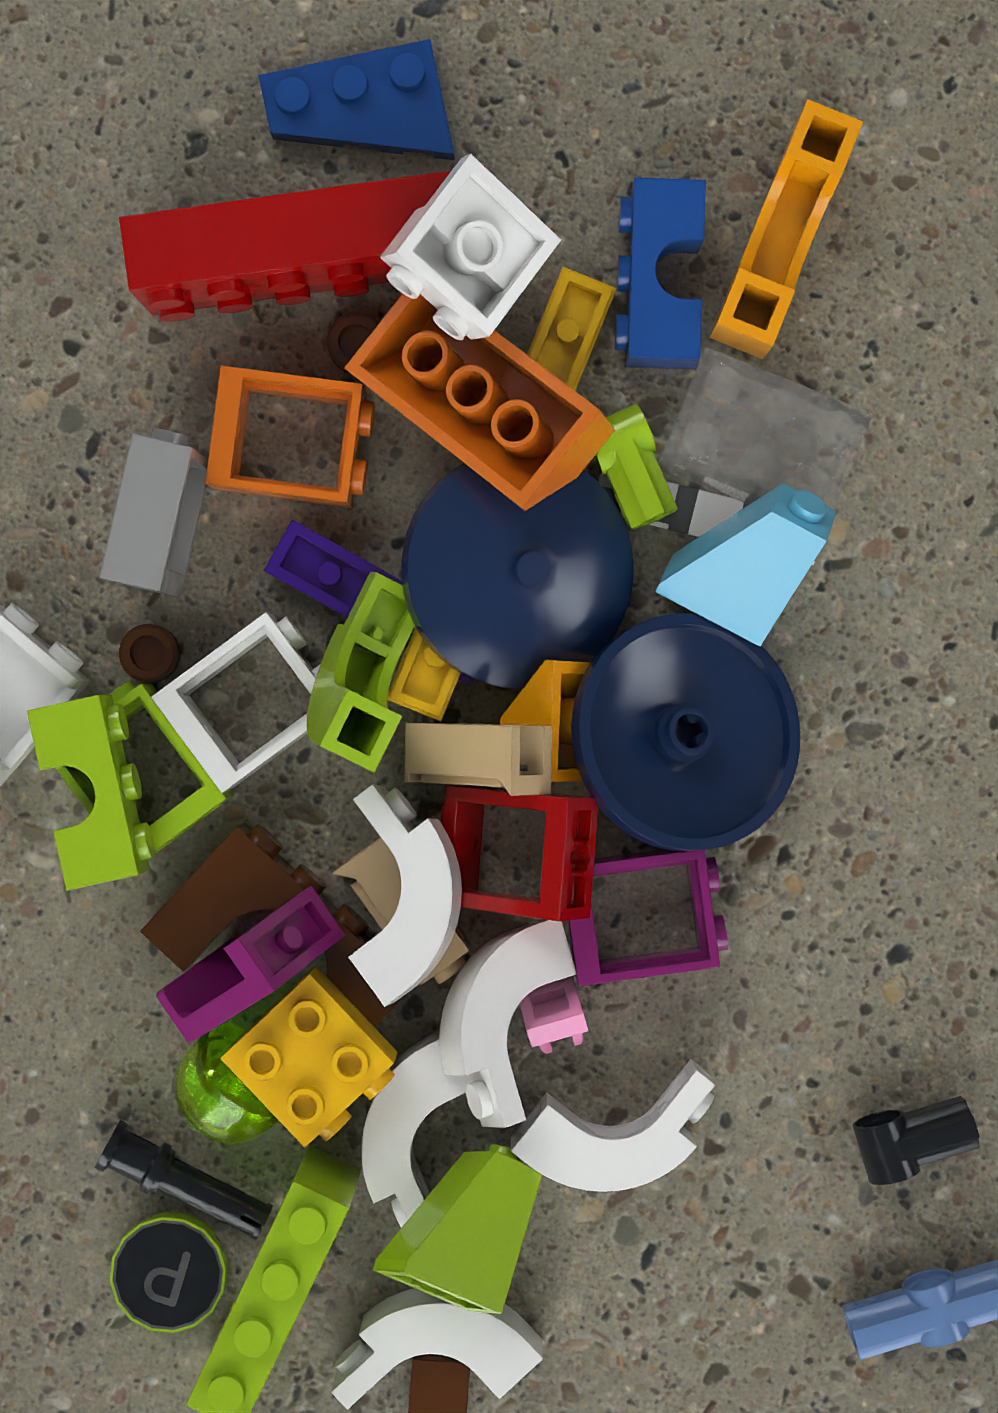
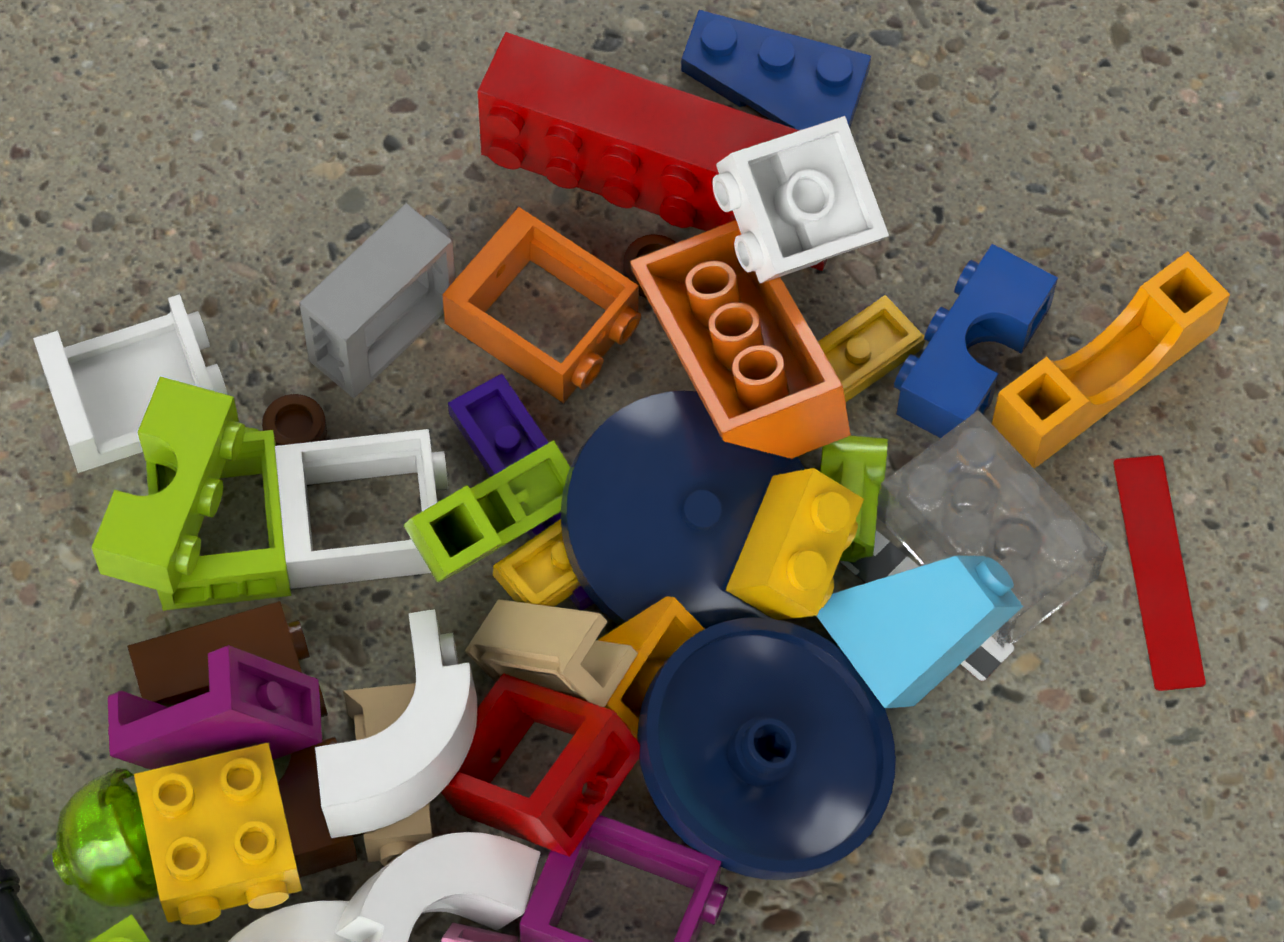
camera: 25 degrees right, 25 degrees down
(623, 556) = (795, 545): none -> yellow brick
(905, 391) = (1159, 573): none -> red sticker

